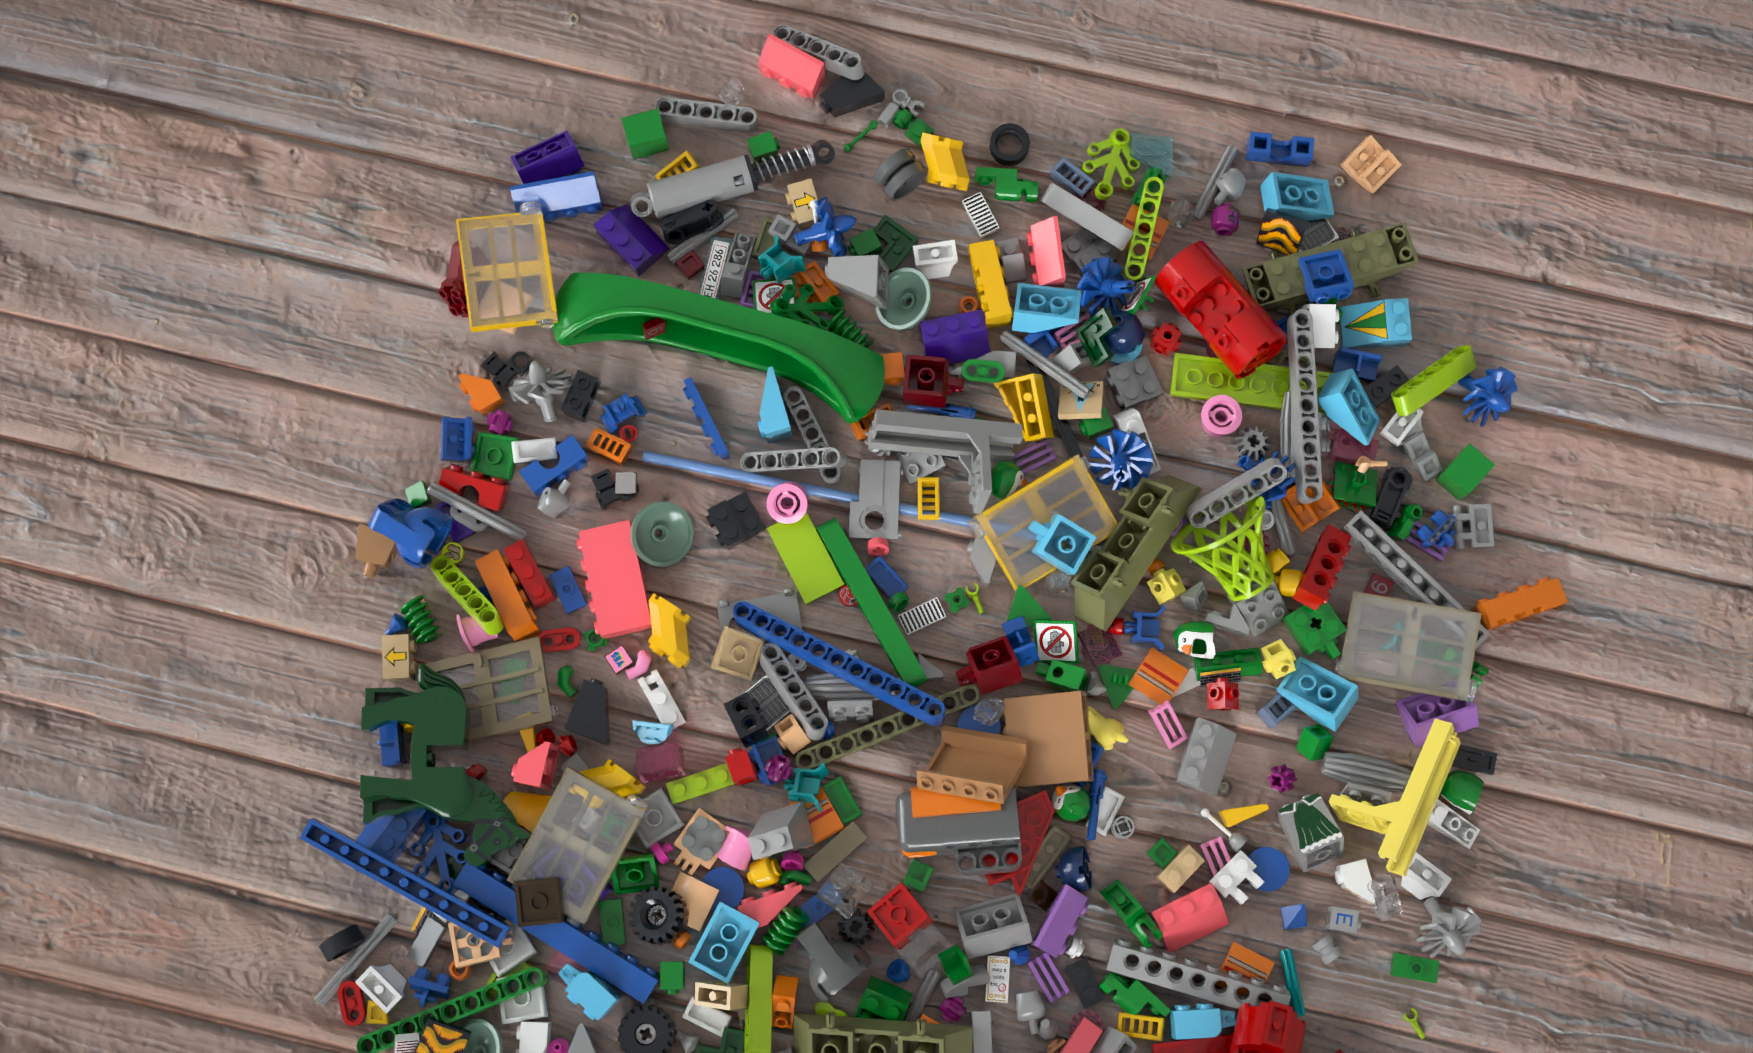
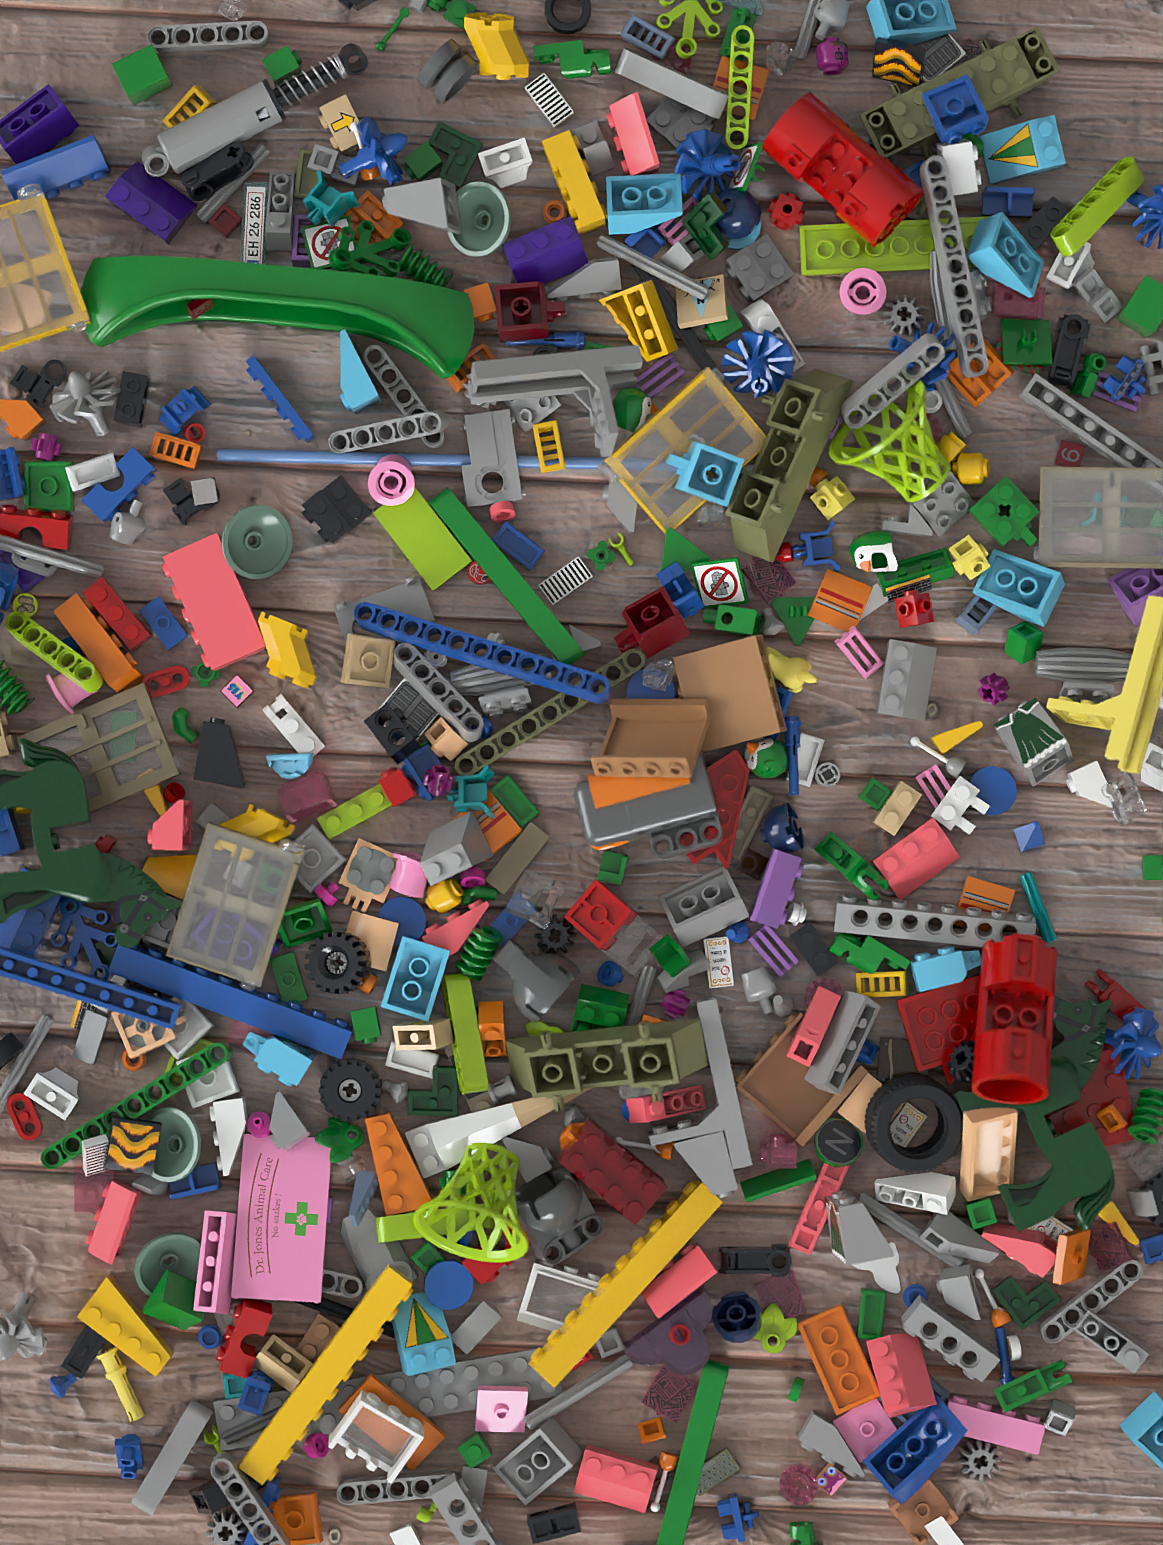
camera: 10 degrees left, 10 degrees up
(376, 1015) = (53, 1123): yellow tile -> none
(421, 984) = (95, 1082): blue hips -> none
(539, 901) = (206, 972): dark brown tile -> none
(567, 745) = (199, 796): red plate -> none
(642, 665) = (264, 692): bright pink arm -> none
(898, 602) = (536, 570): green tile -> none
(983, 370) = (584, 289): green plate -> none
(1195, 596) = (866, 503): light grey slope -> none
(1322, 567) = (989, 477): red brick -> none
(1326, 947) = (1068, 862): light grey wheel -> none
(1343, 919) = (1082, 830): light grey brick -> none
(1364, 463) = (1033, 317): light nougat hand -> none

